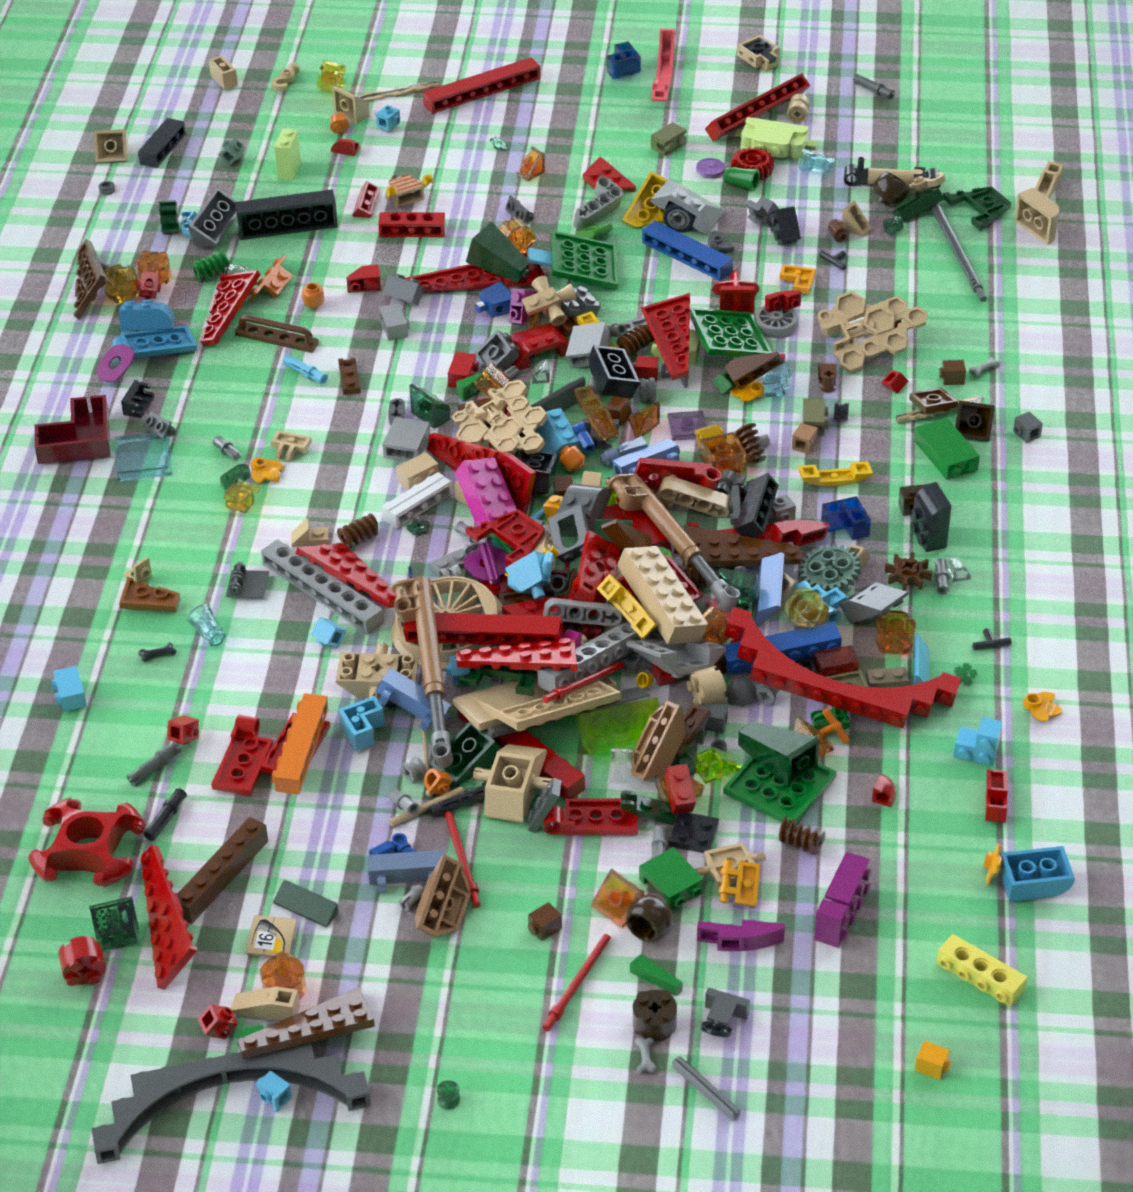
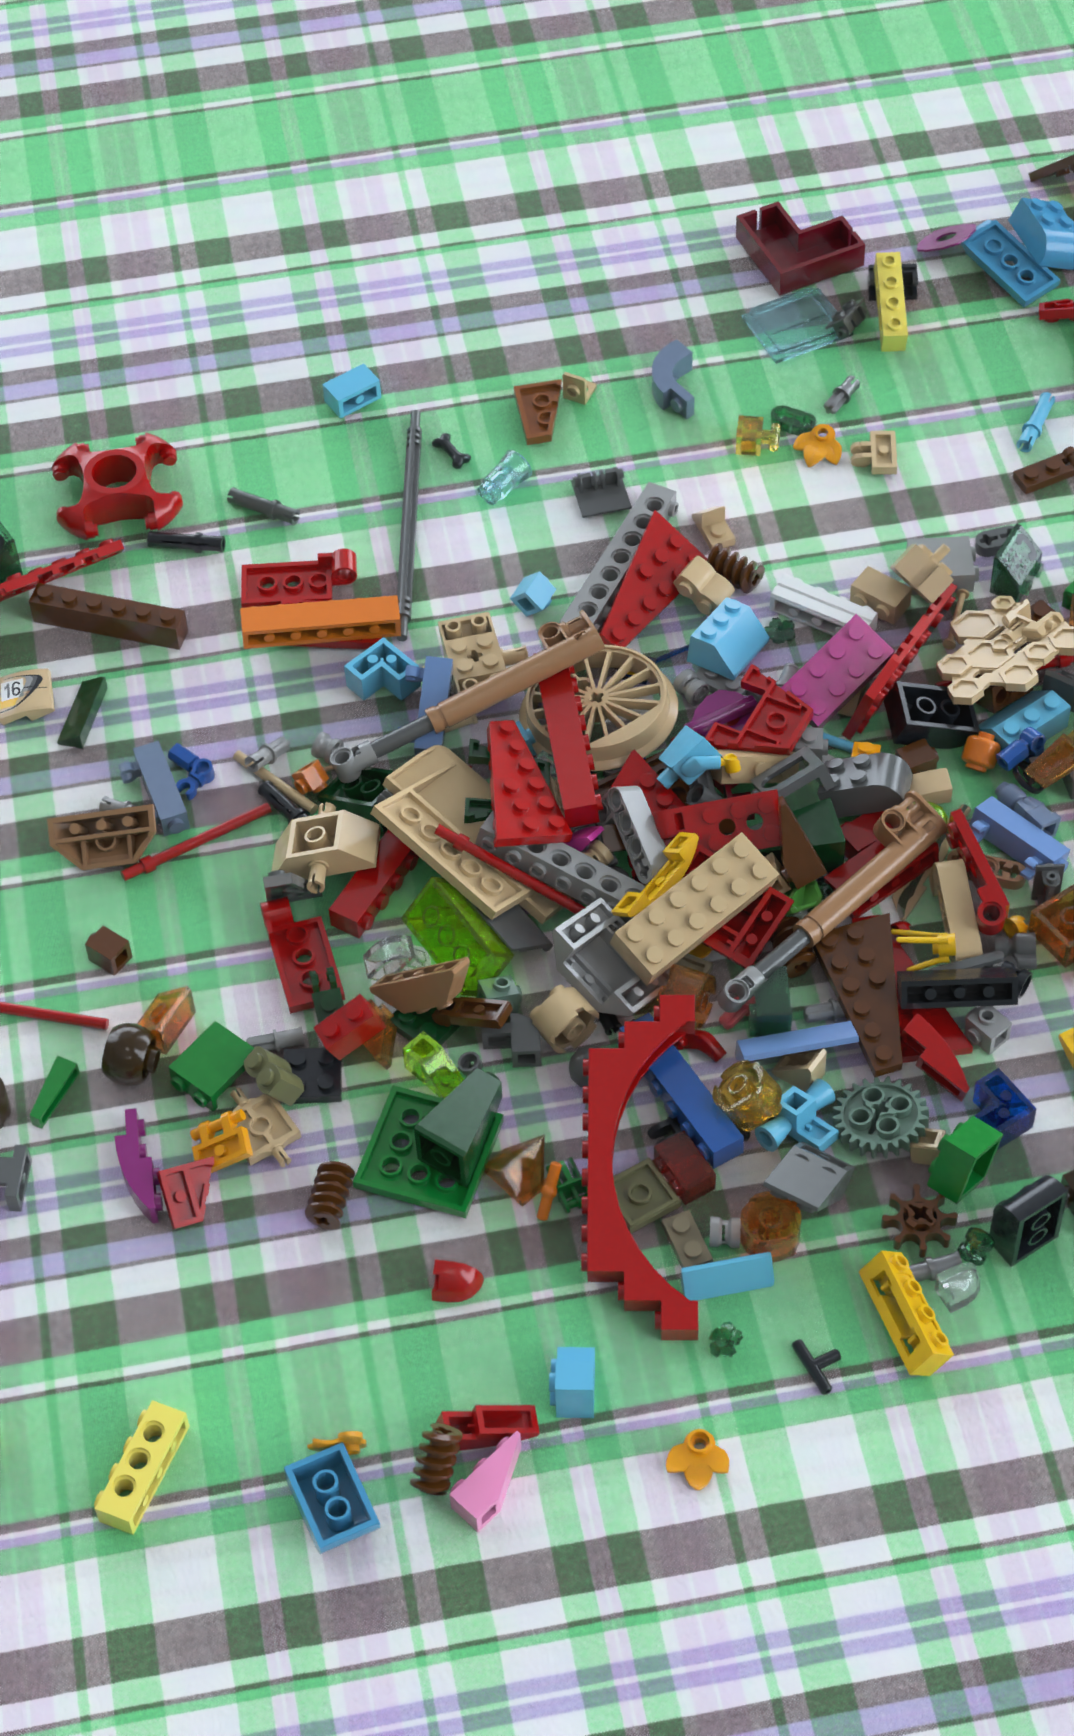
camera: 75 degrees right, 10 degrees up
(163, 527) = (667, 367): none -> sand blue arch
(164, 399) = (890, 301): none -> light yellow brick
(183, 729) = (317, 510): red brick -> none
(206, 685) = (409, 522): none -> dark grey axle
(369, 547) = (703, 585): none -> tan brick
(420, 548) = (727, 639): none -> medium azure slope
(427, 435) = (924, 571): none -> tan brick
(693, 449) = (1047, 882): none -> dark grey hinge
(704, 839) = (273, 1075): none -> olive brick
(721, 507) = (942, 944): none -> yellow plant
(774, 909) = (186, 1191): none -> red wing
(847, 895) = (215, 1265): magenta piece -> none
(881, 534) = (963, 1159): none -> green piece
(889, 655) = (732, 1232): none -> light grey wheel
(934, 551) = (976, 1246): none -> clear green wheel
(1005, 588) = (906, 1313): none -> yellow brick
(1023, 812) = (438, 1459): none -> reddish brown piece
(1039, 801) = (484, 1490): none -> bright pink slope

